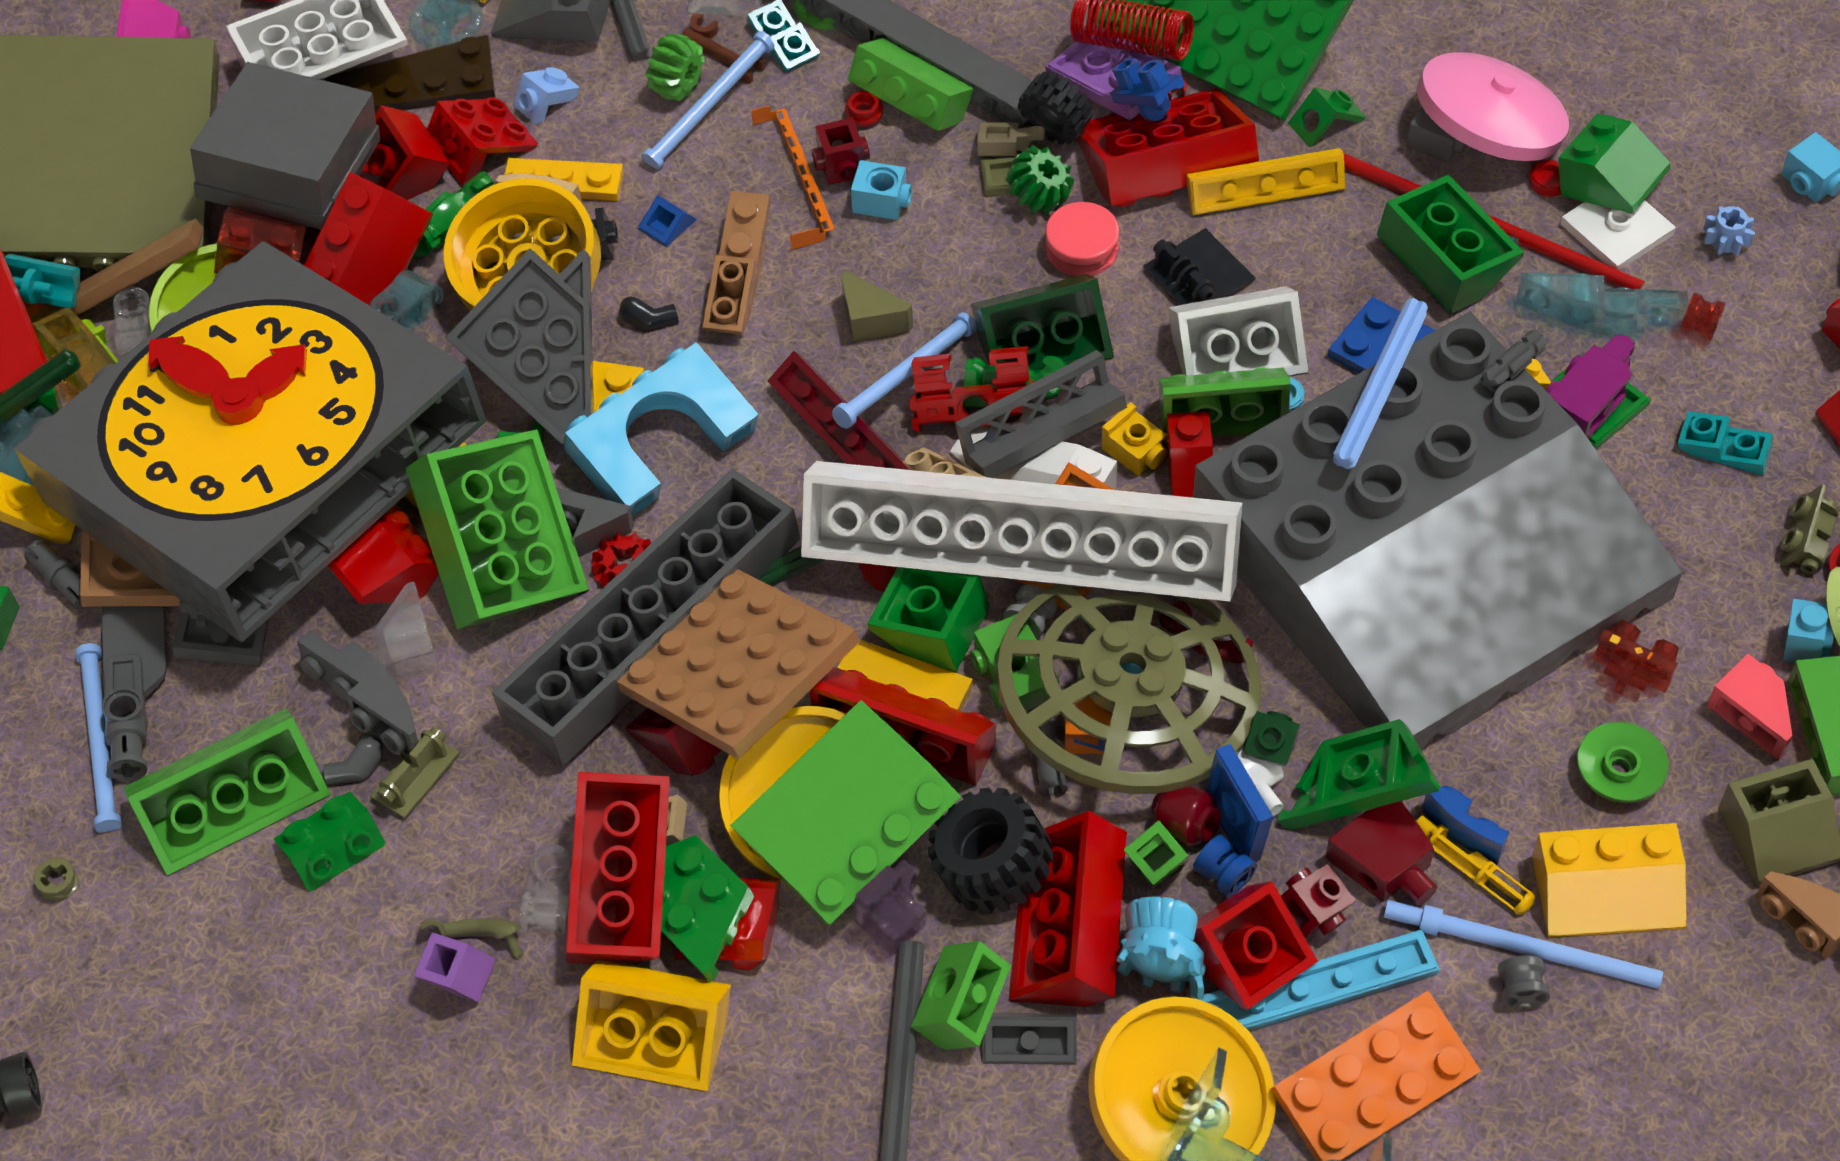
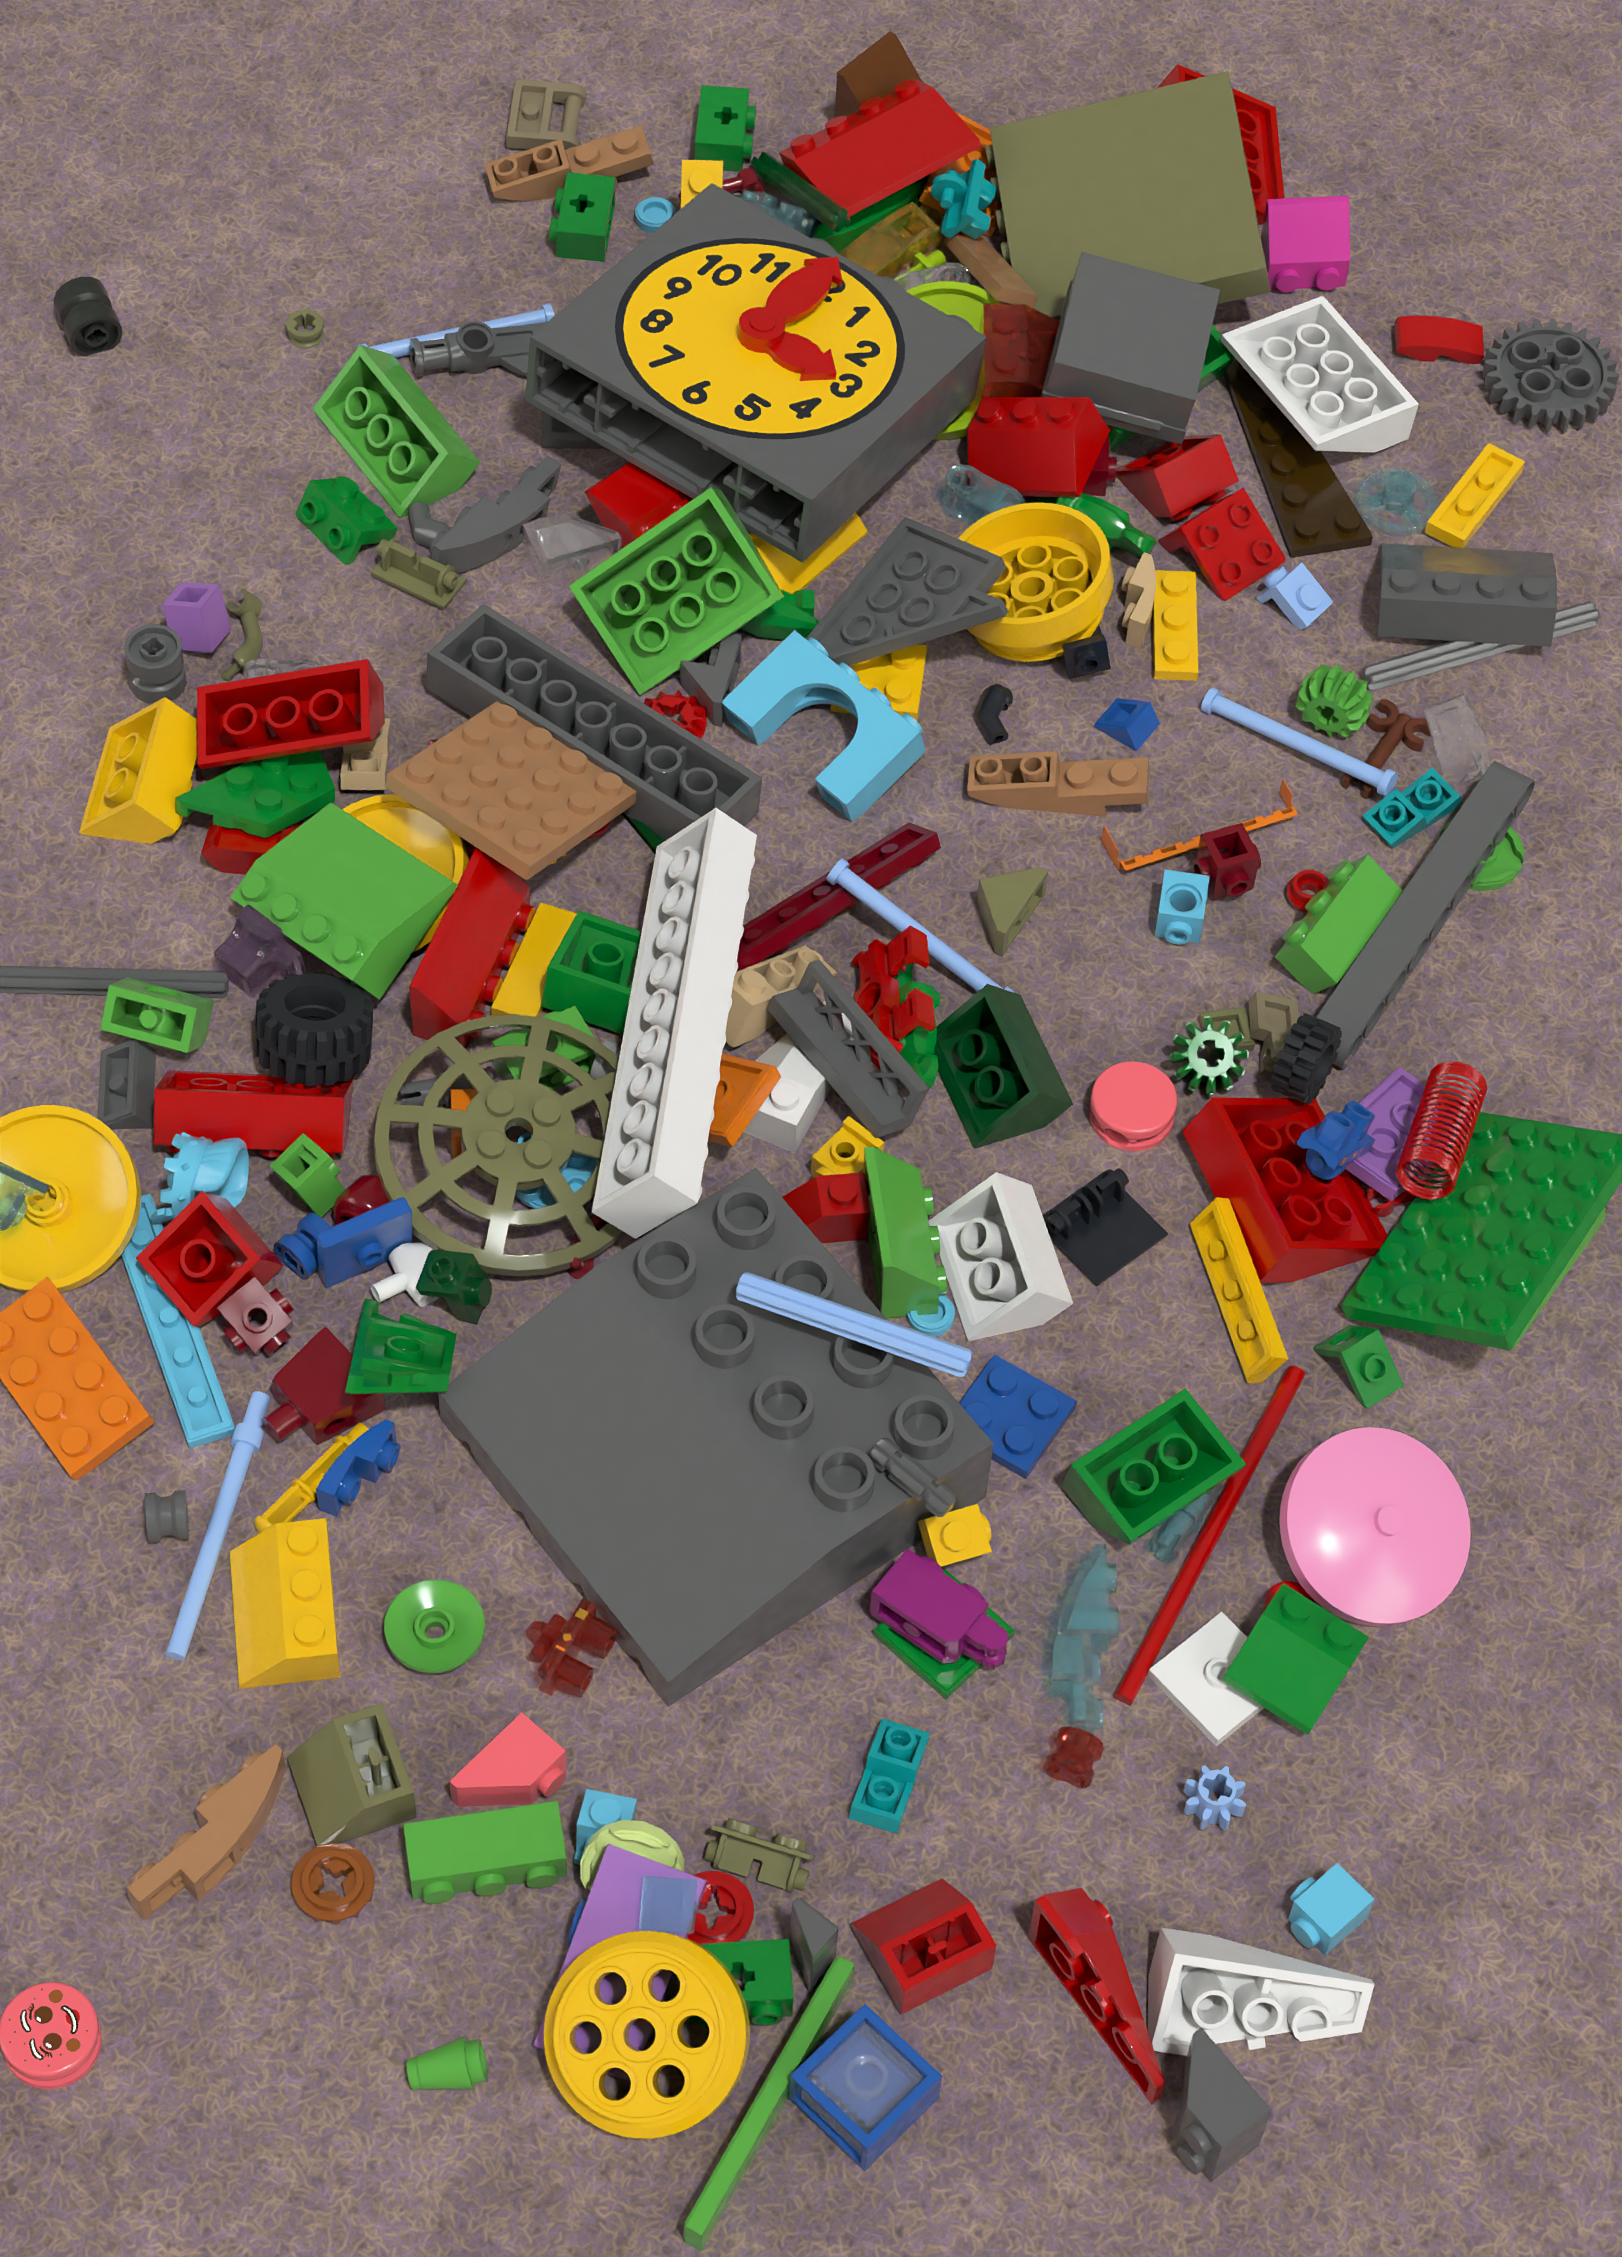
camera: 80 degrees right, 0 degrees up
(511, 1007) = (155, 663): none -> dark grey wheel

